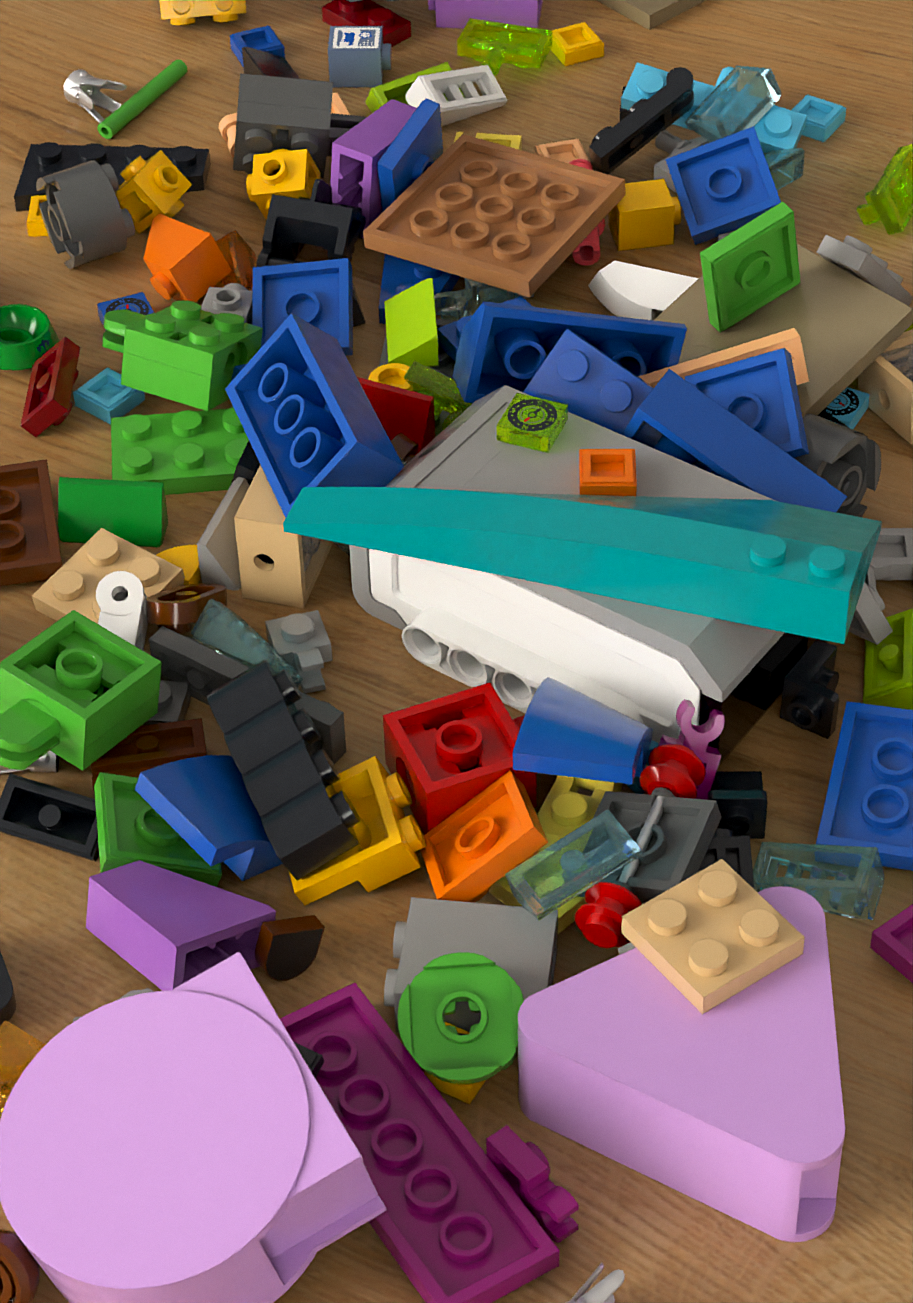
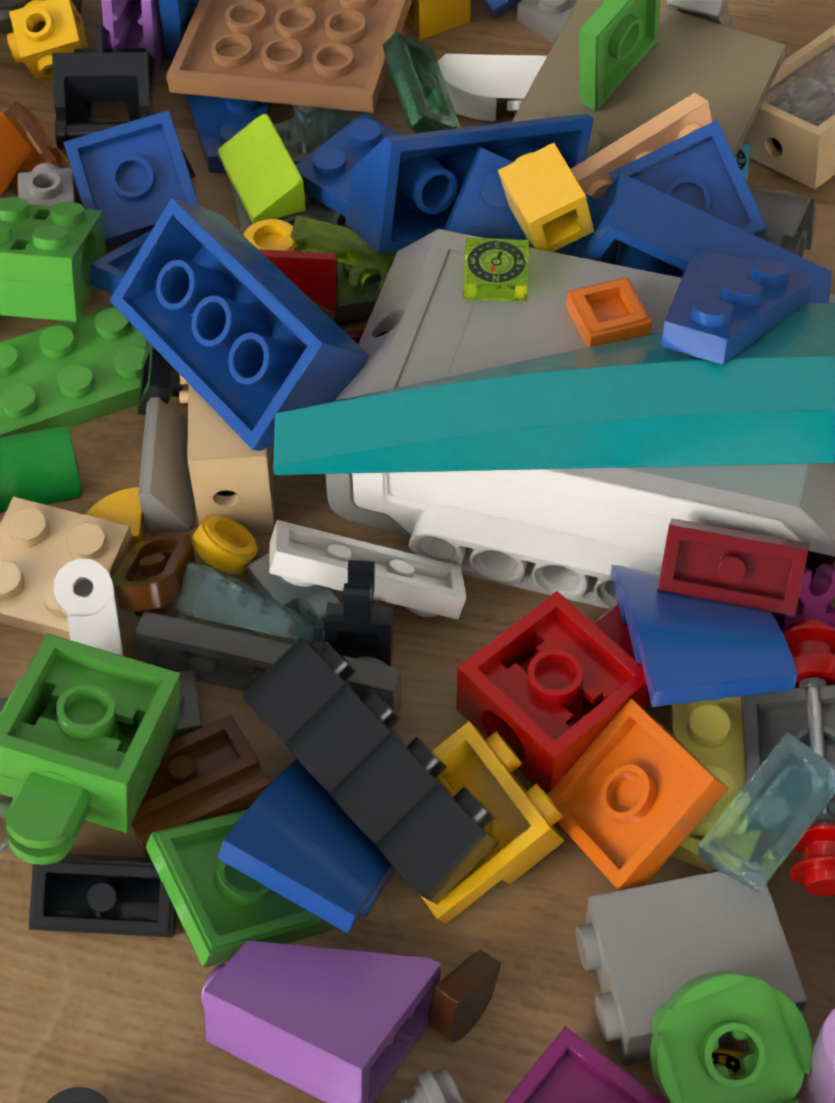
camera: 20 degrees left, 10 degrees up
(253, 600) = (224, 544): none -> yellow tile
(325, 672) = (356, 625): none -> black plate
(353, 641) = (402, 578): none -> white plate
(578, 276) = (419, 85): none -> clear green plate
(599, 378) = (546, 199): none -> yellow brick
(629, 687) = (733, 566): none -> dark red plate
(699, 480) = (730, 304): none -> blue wing

